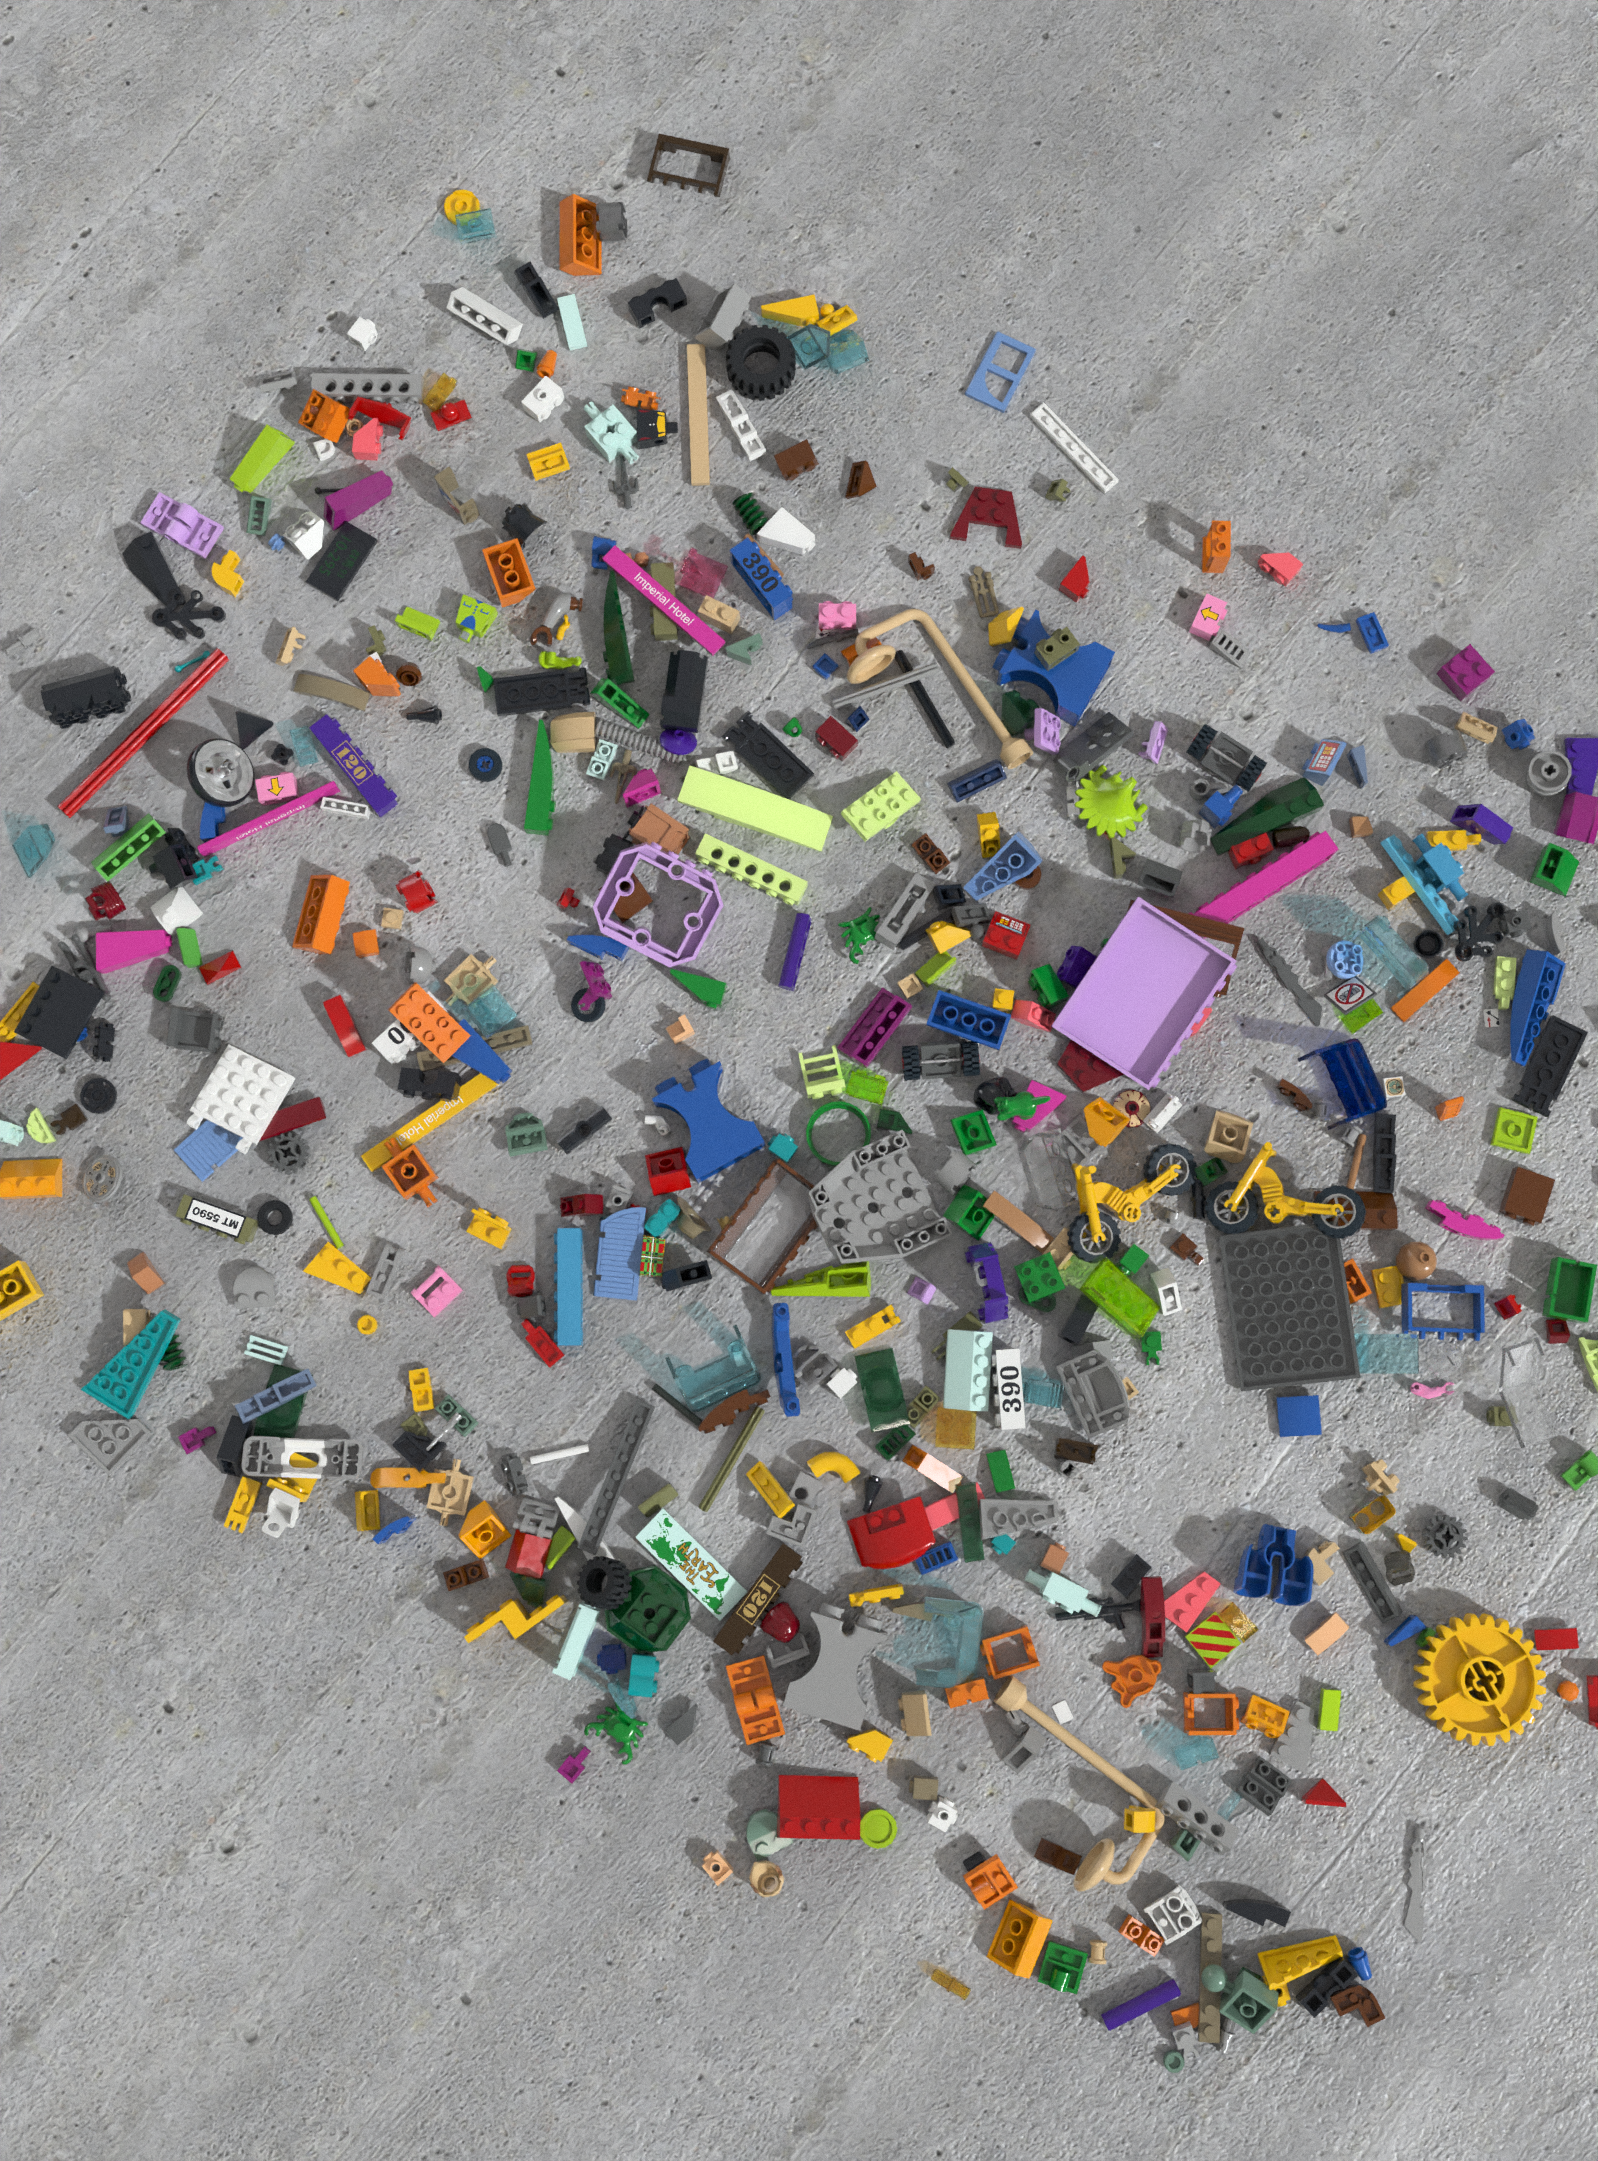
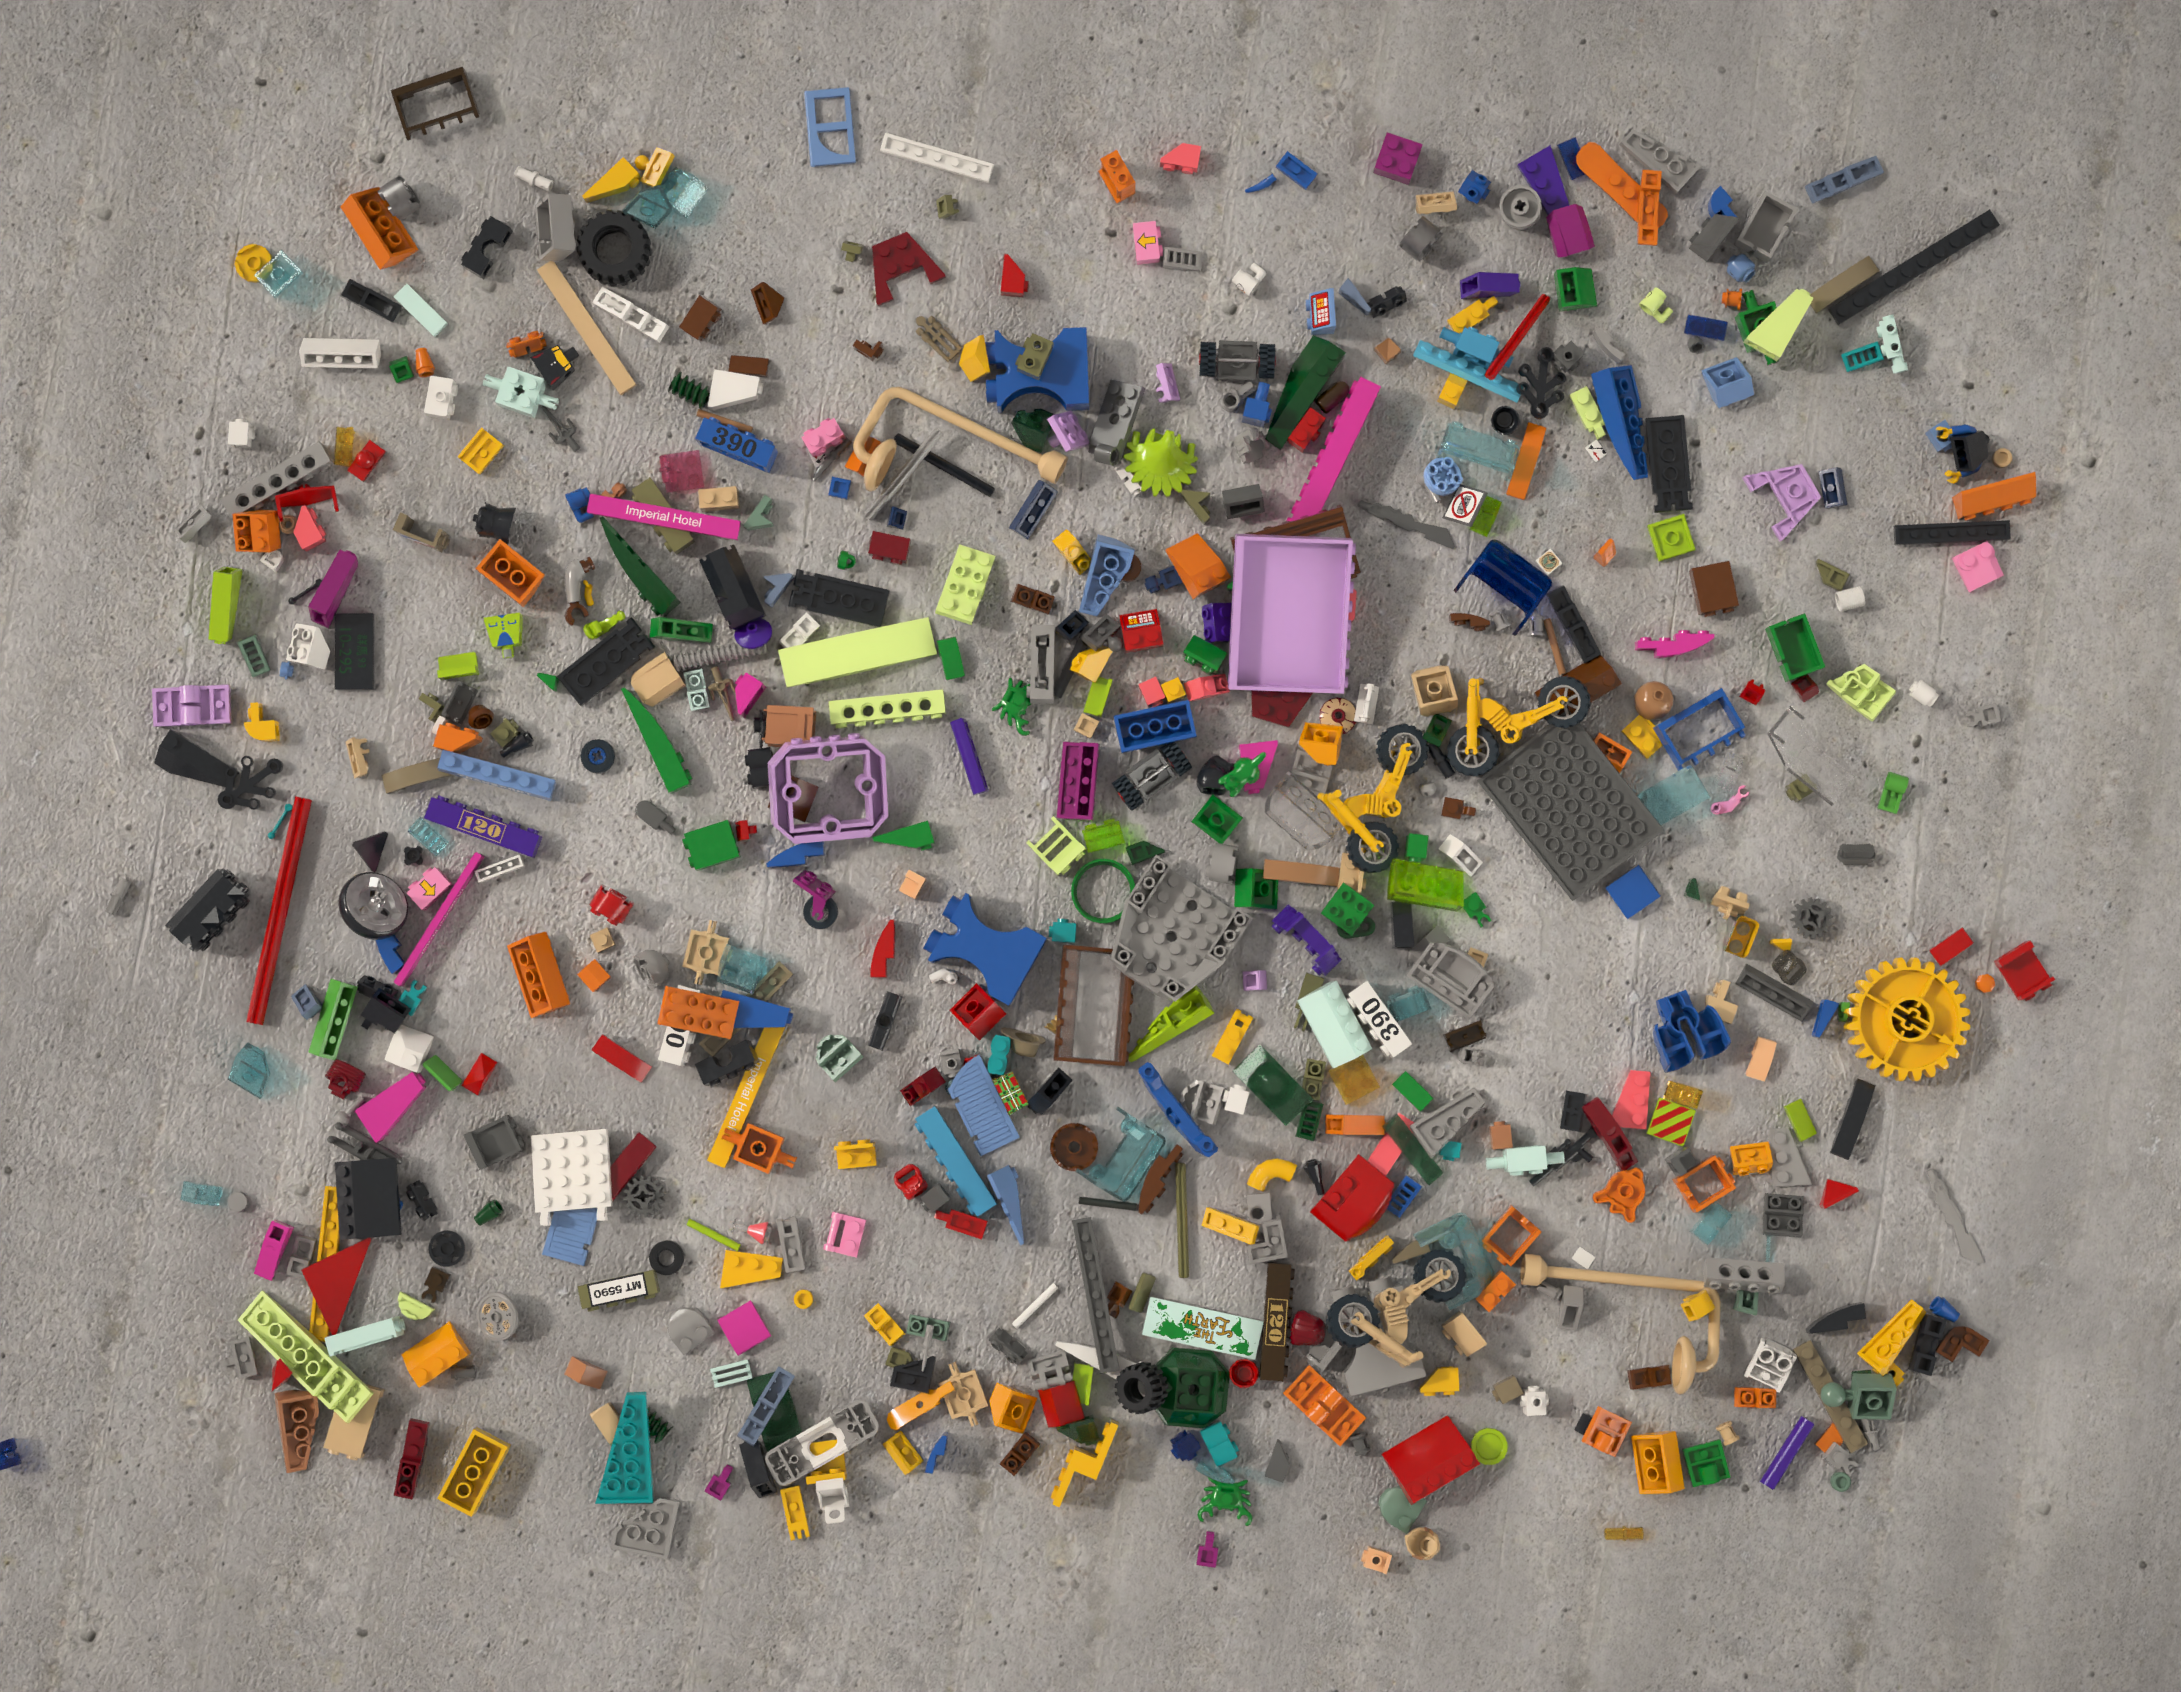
camera: 30 degrees left, 5 degrees up
(43, 1207) = (462, 1372): none -> dark grey pin
(152, 1087) = (489, 1212): none -> dark green cone
(165, 983) = (441, 1116): dark green plate -> none
(301, 1318) = (744, 1328): none -> dark pink slope
(366, 1244) = (760, 1232): none -> piece
(391, 728) = (496, 775): none -> medium blue brick
(400, 652) = (459, 702): none -> dark grey hinge
(422, 699) = (505, 732): none -> olive bracket
(532, 895) = (711, 845): none -> green brick
(576, 1641) = (1147, 1449): light aqua door -> none
(597, 1335) = (1006, 1189): none -> medium blue wedge
(620, 1070) = (884, 950): none -> red slope
(635, 1491) = (1118, 1297): none -> reddish brown plate
(664, 1334) = (1060, 1146): none -> reddish brown plate
(702, 1627) = (1244, 1373): none -> red hair
(726, 714) = (780, 584): none -> sand blue slope
(730, 271) = (533, 178): none -> white pin
(813, 523) = (749, 365): none -> reddish brown slope
(830, 860) = (950, 658): none -> green slope
(865, 1654) = (1393, 1311): none -> piece
(984, 991) = (1152, 692): none -> coral brick
(1056, 905) = (1168, 577): none -> dark blue plate
(1088, 909) = (1197, 565): none -> orange slope
(1274, 700) = (1247, 282): none -> white piece
(1352, 1447) = (1692, 890): none -> clear green slope
(1377, 1739) = (1852, 1119): none -> black slope
(1392, 786) = (1395, 298): none -> black hinge
(1480, 879) = (1517, 337): none -> red axle

